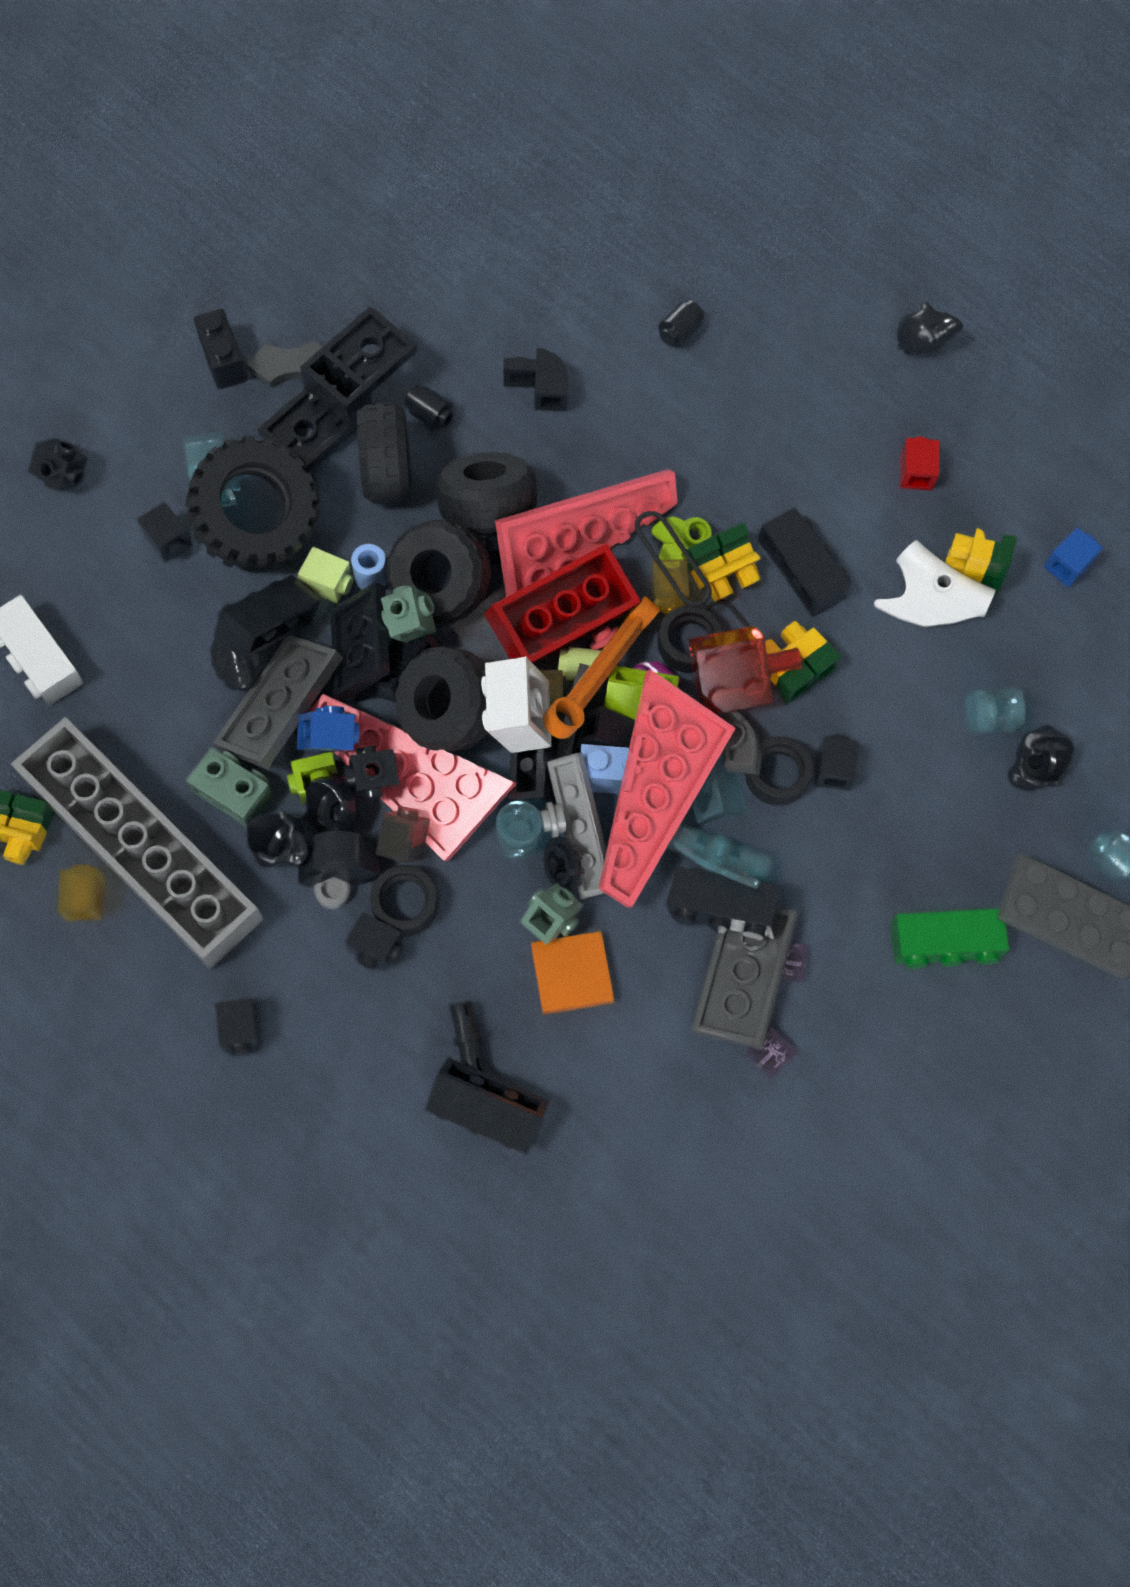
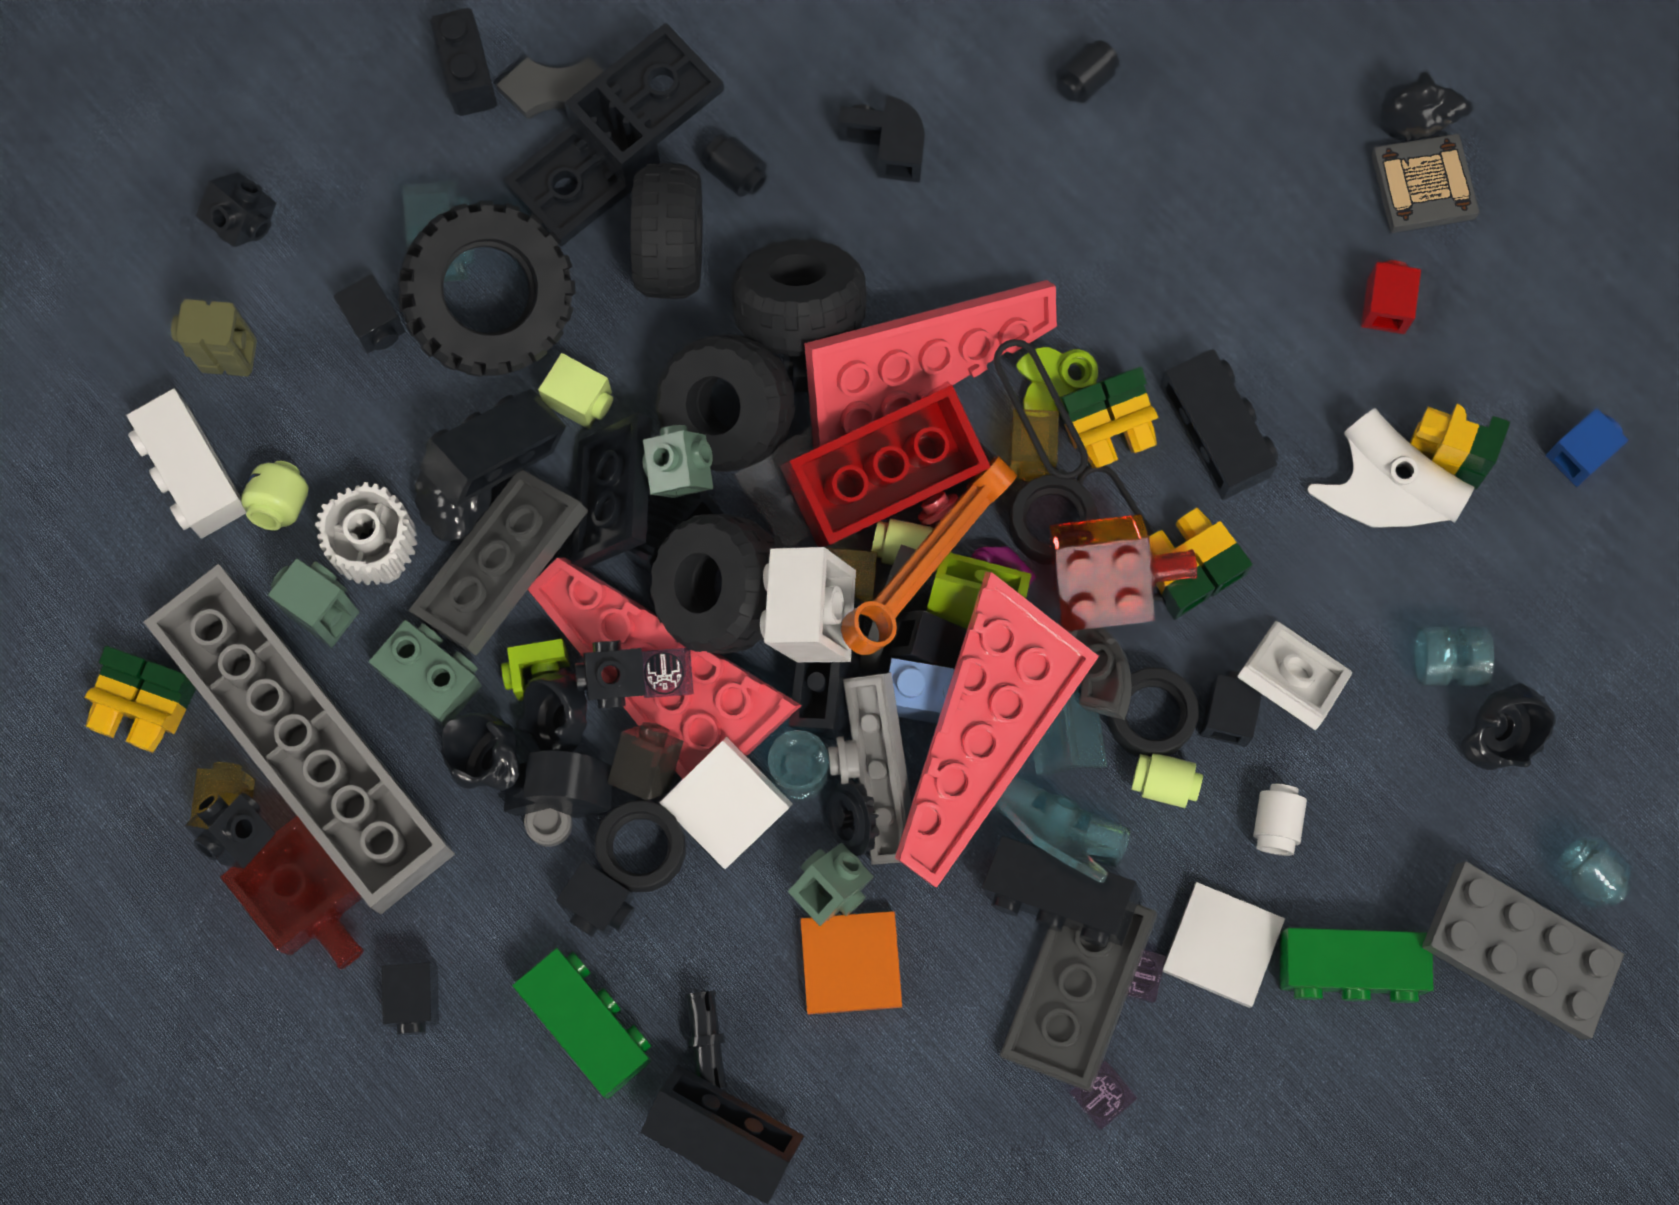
camera: 10 degrees right, 5 degrees up
(49, 555) = (215, 337): none -> olive brick
(89, 908) = (229, 828): none -> black brick
(103, 667) = (274, 495): none -> yellowish green head
(140, 739) = (313, 600): none -> sand green brick
(145, 955) = (297, 894): none -> clear red brick
(173, 705) = (378, 556): none -> white brick
(327, 730) = (557, 615): blue brick -> none
(369, 565) = (634, 386): light blue brick -> none
(373, 1033) = (584, 1021): none -> green brick
(414, 768) = (667, 672): none -> tile
(466, 861) = (726, 803): none -> white tile
(794, 817) = (1167, 779): none -> yellowish green brick
(849, 934) = (1223, 945): none -> white tile
(880, 733) = (1295, 675): none -> white tile
(881, 839) = (1279, 819): none -> white brick
(934, 384) = (1425, 183): none -> tile

